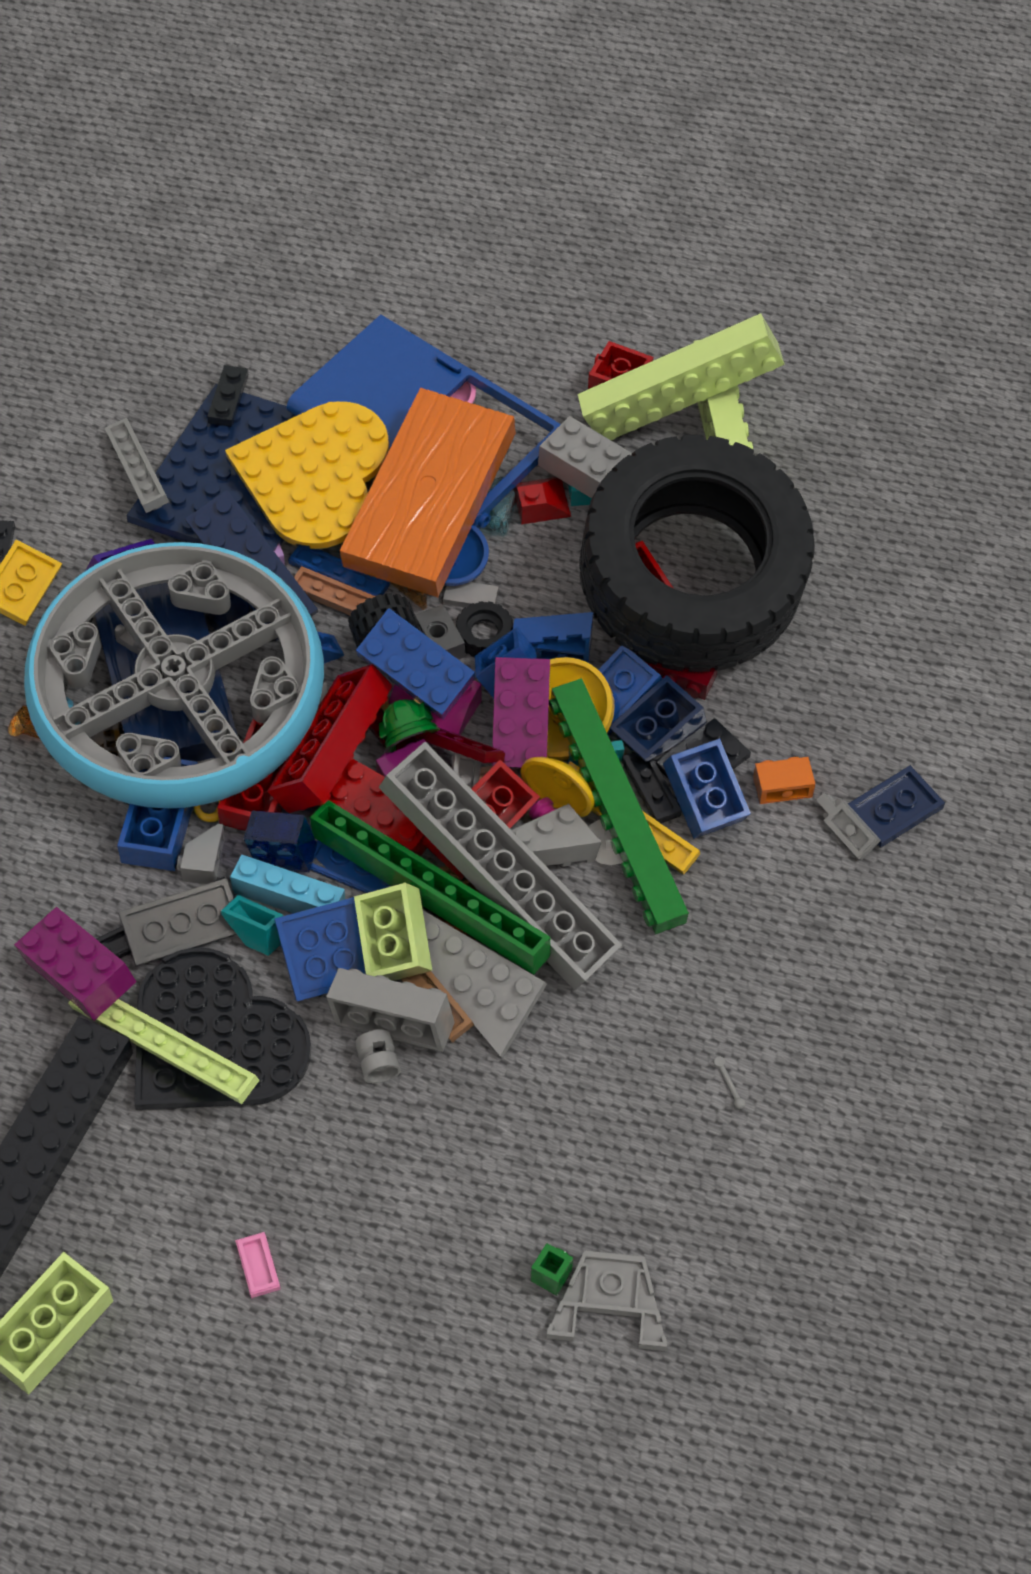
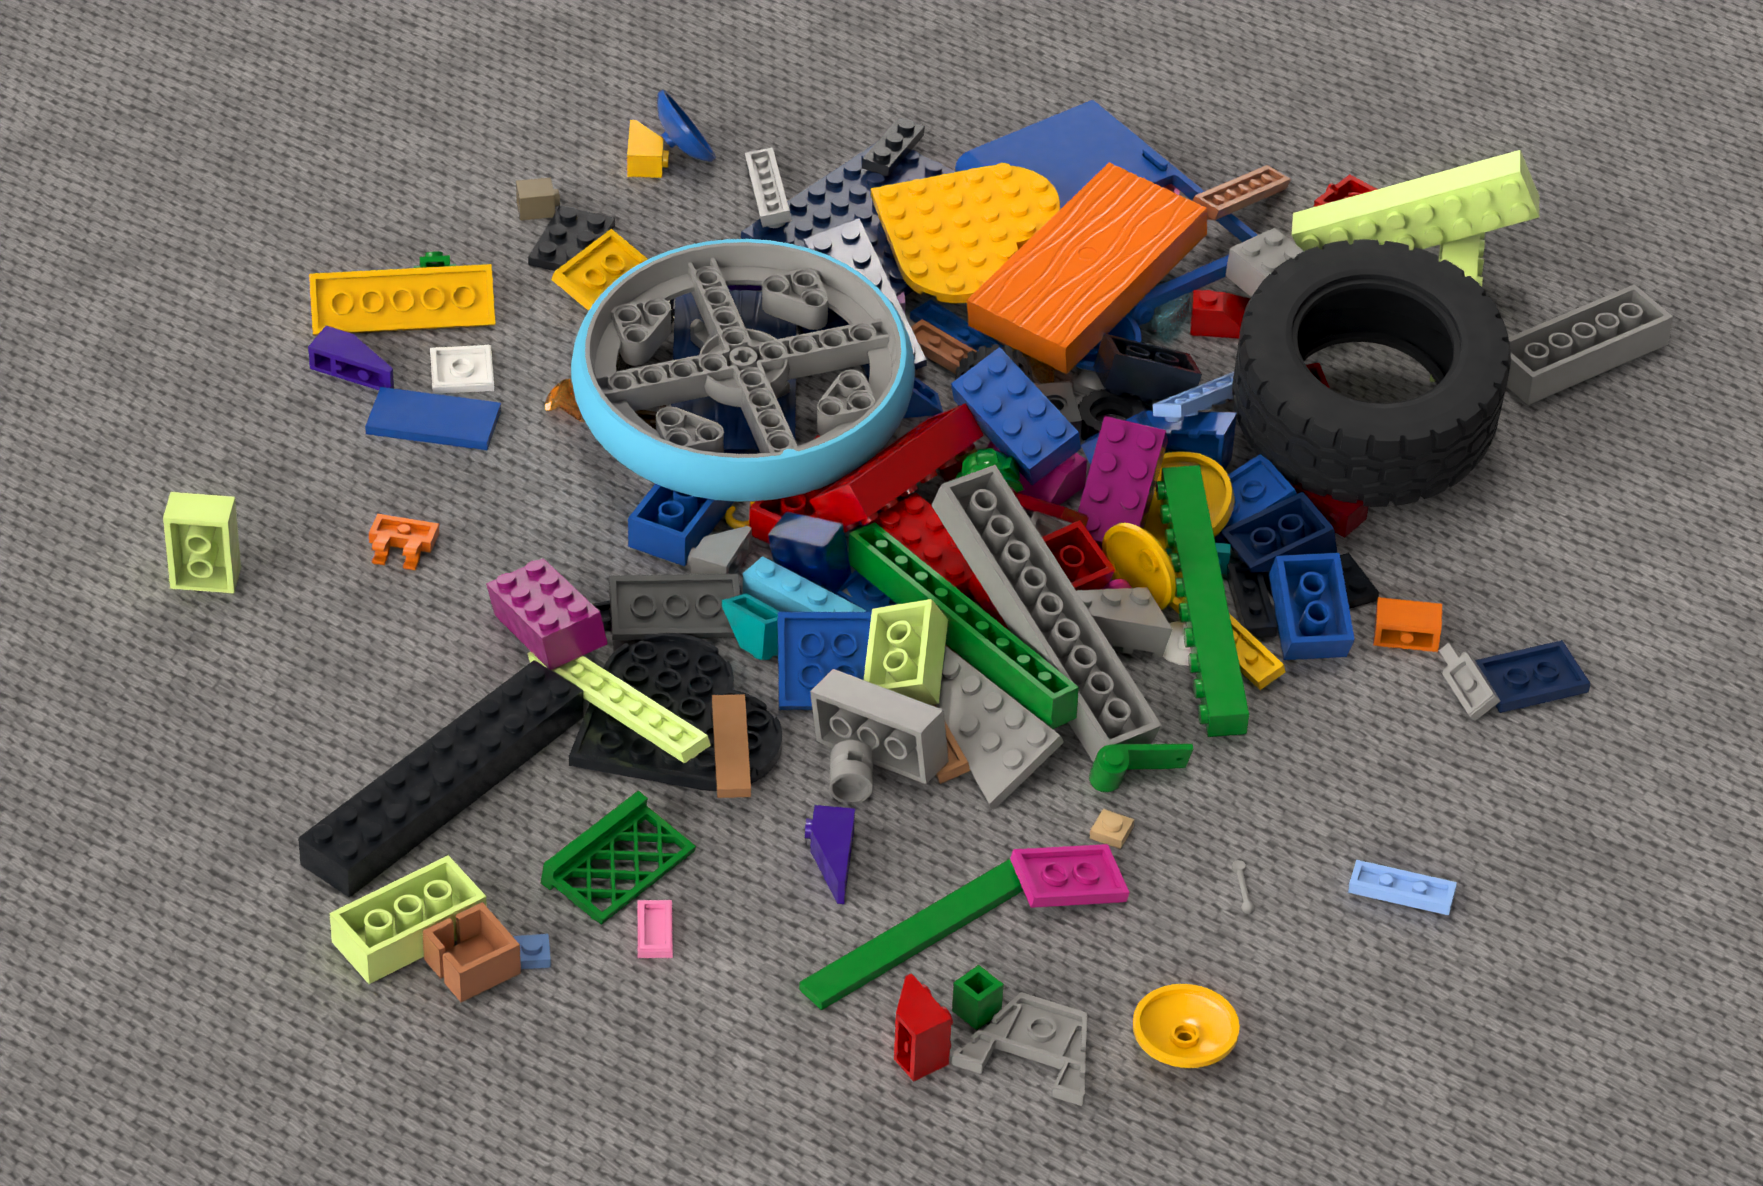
camera: 15 degrees right, 15 degrees down
(21, 447) = (645, 152): none -> yellow slope
(47, 420) = (681, 130): none -> blue dish
(115, 1347) = (483, 954): none -> nougat piece
(160, 1319) = (534, 951): none -> medium blue plate
(185, 1187) = (594, 845): none -> green fence
(270, 1059) = (731, 746): none -> medium nougat tile
(382, 1137) = (831, 845): none -> dark purple slope
(477, 1208) = (911, 936): none -> green tile
(504, 580) = (1144, 369): none -> black brick
(517, 1321) = (921, 1031): none -> red slope
(527, 380) = (1241, 192): none -> nougat plate
(557, 600) = (1195, 399): none -> light blue plate
(588, 1116) = (1069, 875): none -> dark pink plate
(593, 991) = (1115, 759): none -> green door
(606, 1052) = (1111, 828): none -> tan plate
(734, 1234) = (1189, 1014): none -> yellow dish
(845, 457) = (1586, 343): none -> light grey brick
(858, 1050) = (1402, 887): none -> light blue plate

